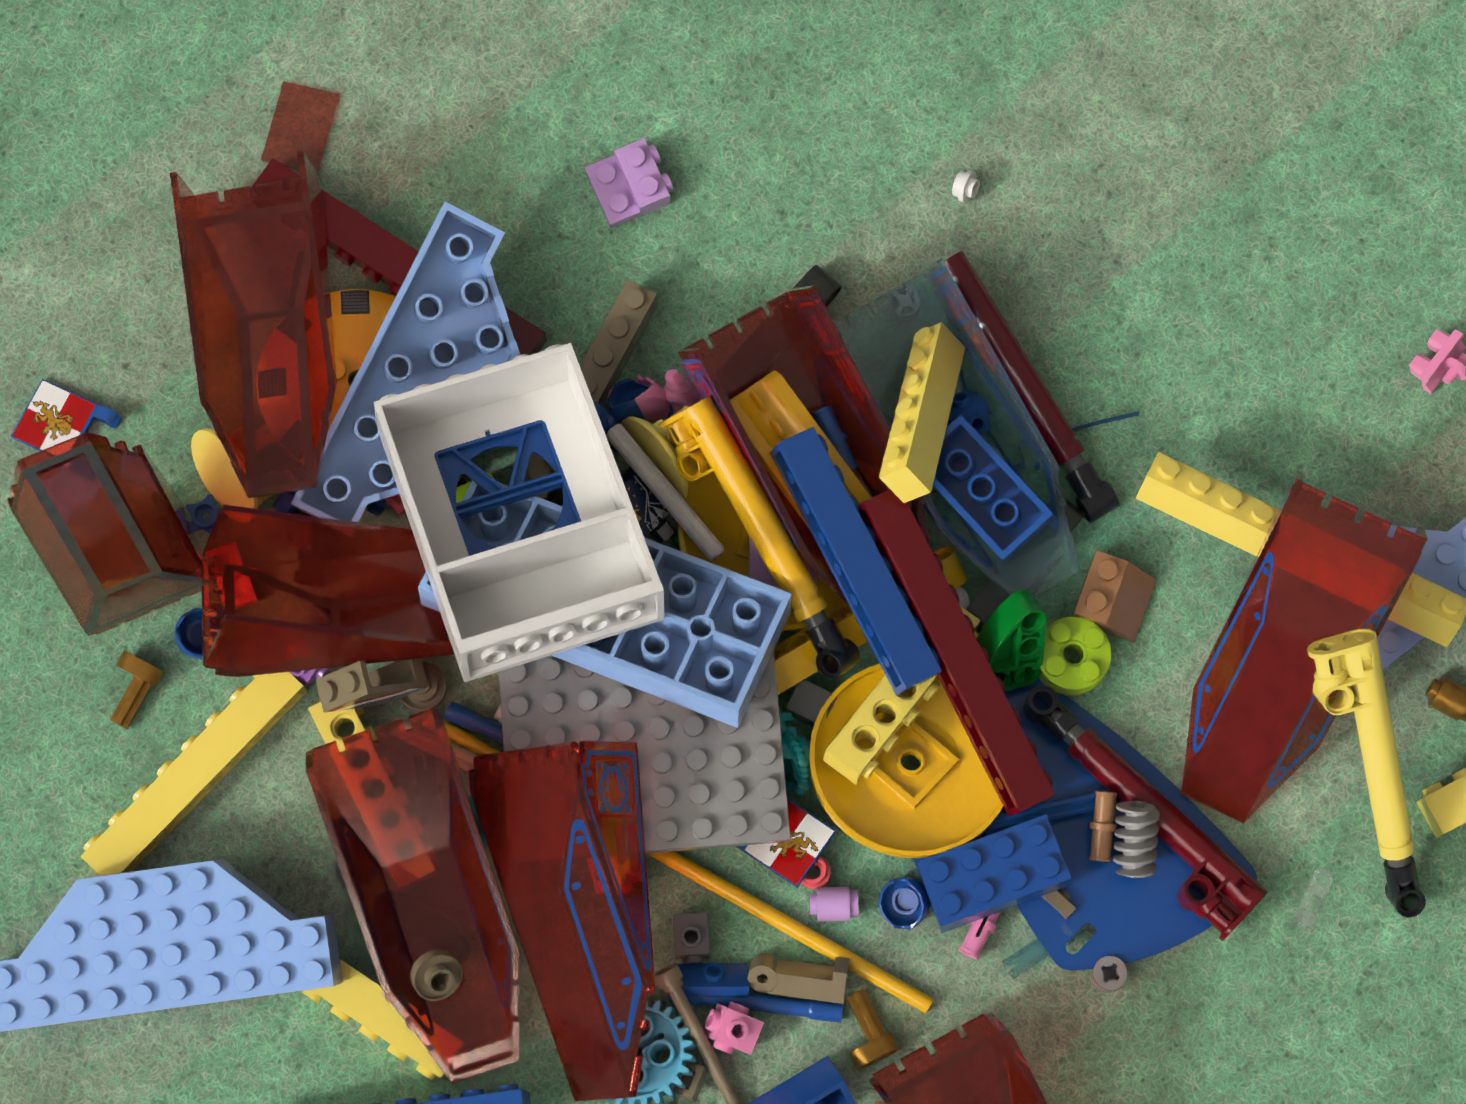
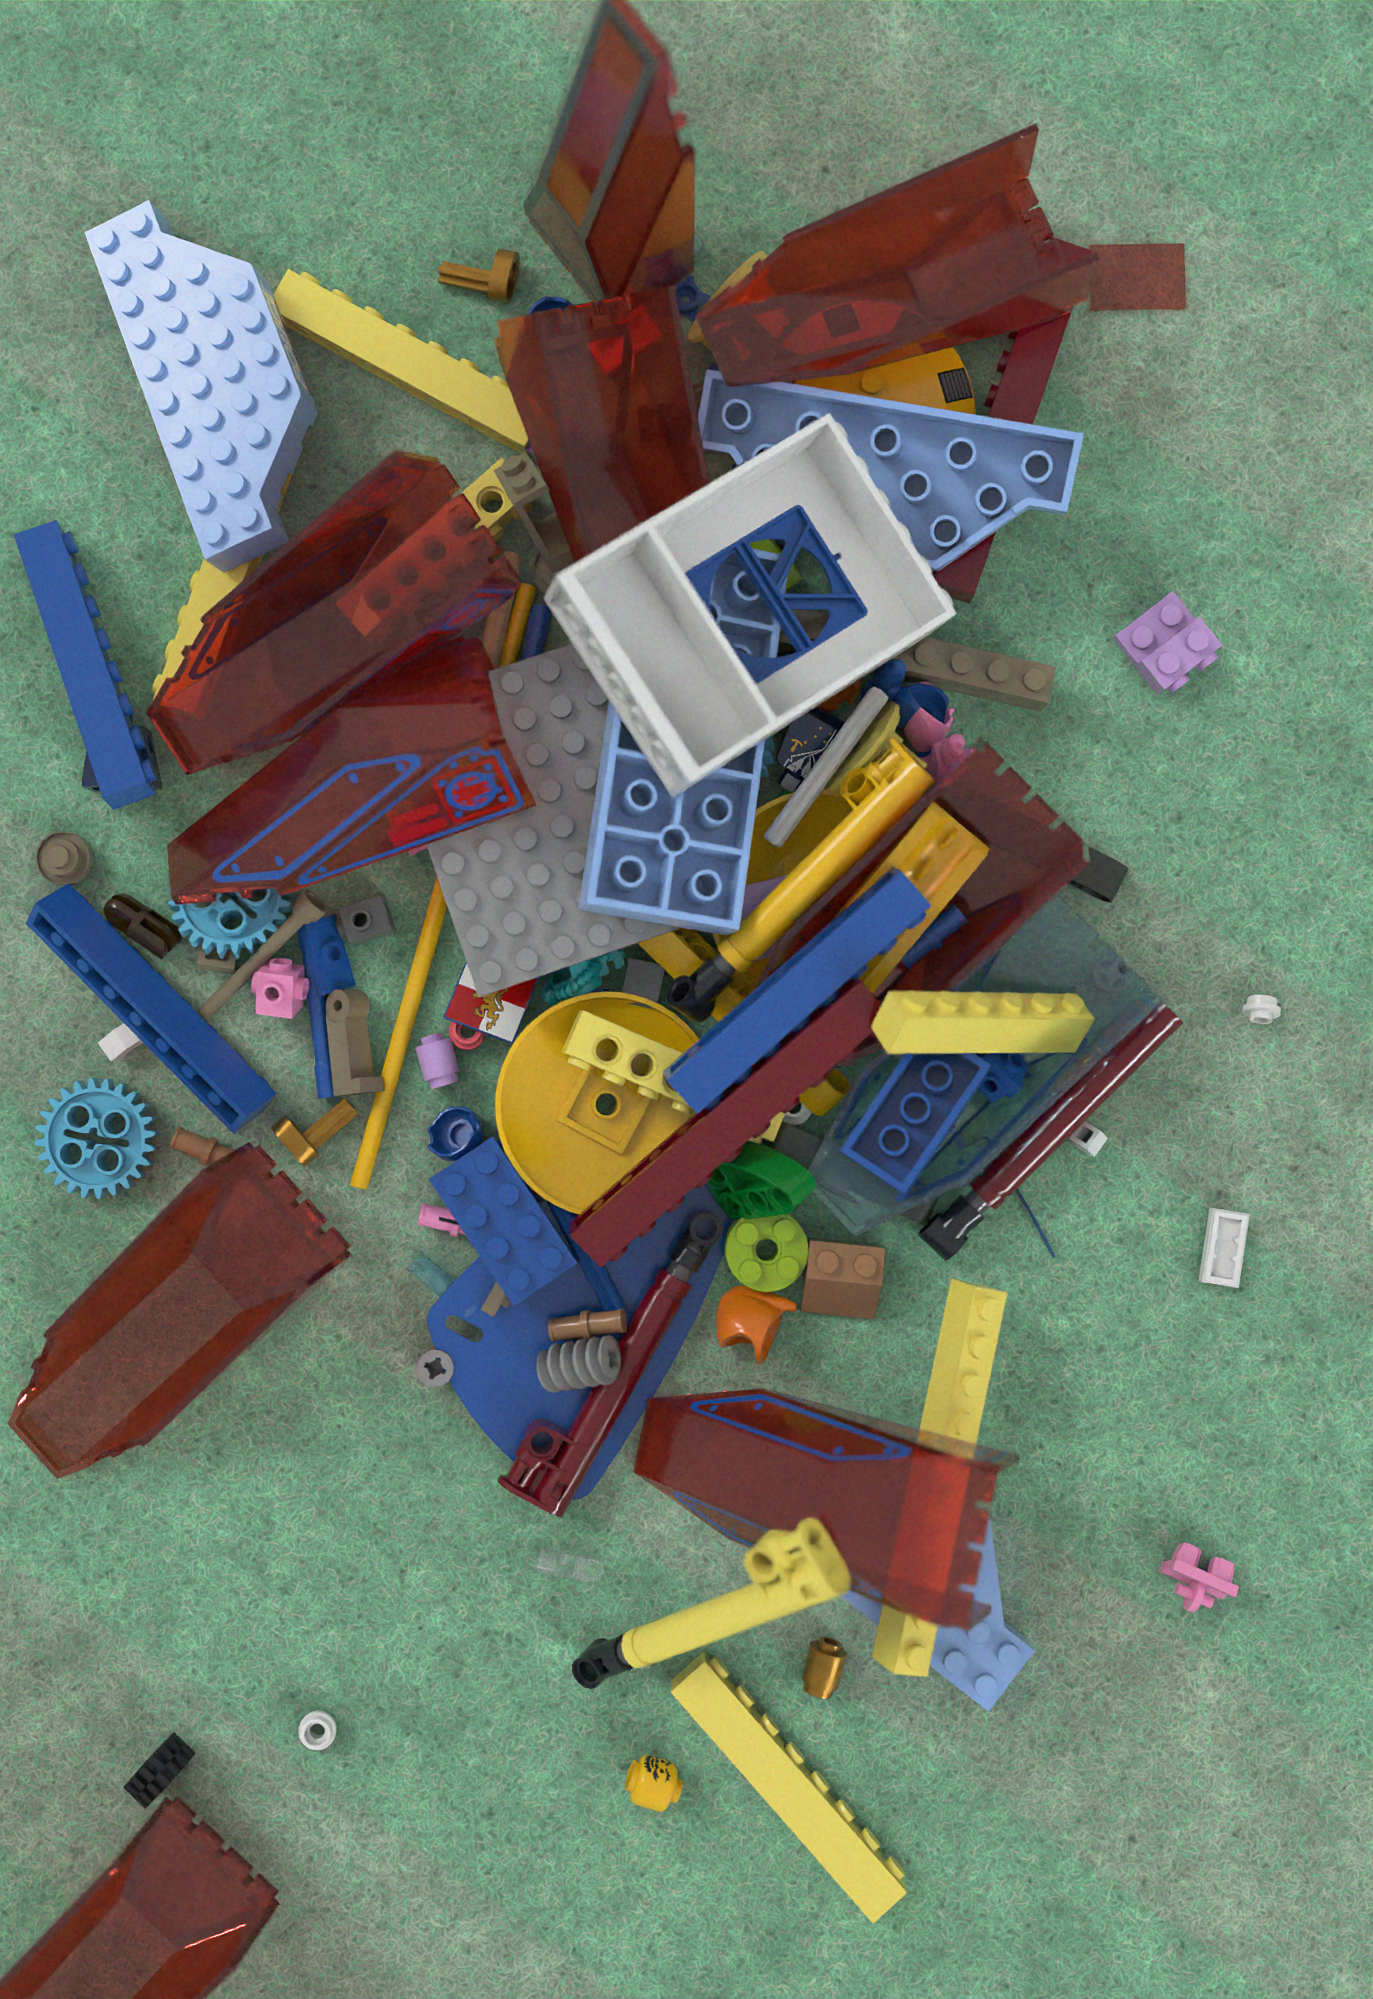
camera: 75 degrees right, 10 degrees up
(58, 416) = (744, 117): flag -> none
(436, 975) = (246, 663): dark tan plate -> none
(1048, 352) = (1094, 1143): none -> white piece
(1130, 685) = (750, 1318): none -> orange piece
(1163, 269) = (1224, 1247): none -> white plate

